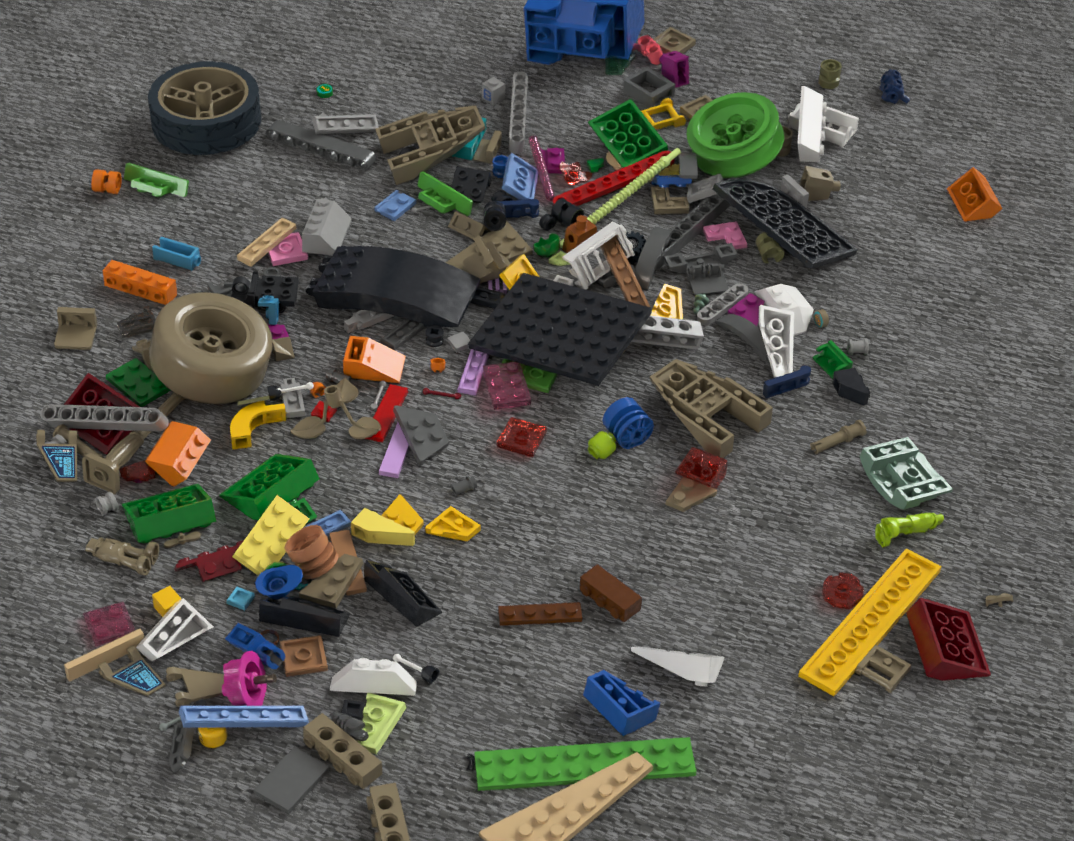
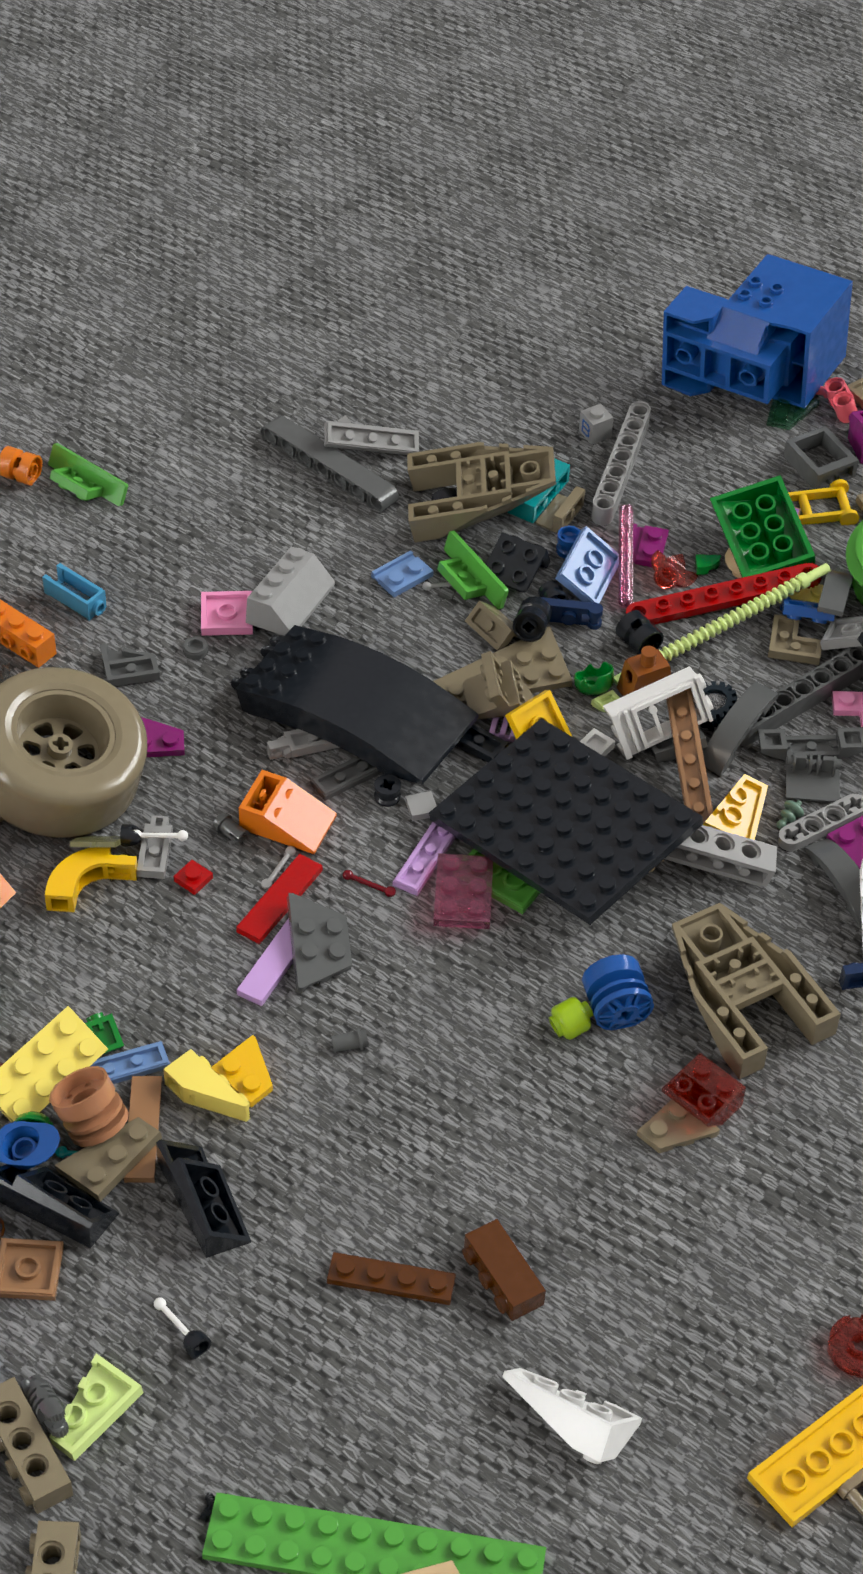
camera: 15 degrees right, 5 degrees up
(204, 93) = (187, 358): wheel -> none
(266, 242) = (201, 598): tan tile -> none
(272, 312) = (173, 703): dark azure bracket -> none
(278, 476) = (80, 976): green slope -> none
(279, 287) = (179, 675): black plate -> none
(282, 348) = (169, 767): dark tan slope -> none
(318, 388) = (195, 838): orange hinge -> none
(324, 90) = (363, 381): green tile -> none
(335, 397) = (228, 856): dark tan plant -> none
(353, 708) = (66, 1377): black tile -> none
(374, 677) = (115, 1331): white wedge -> none
(437, 364) = (377, 836): orange hinge -> none
(453, 525) = (312, 1103): yellow wing -> none
(521, 437) = (459, 979): clear red plate -> none
(547, 222) = (608, 641): black bush -> none
(618, 703) = (455, 1465): blue wedge -> none

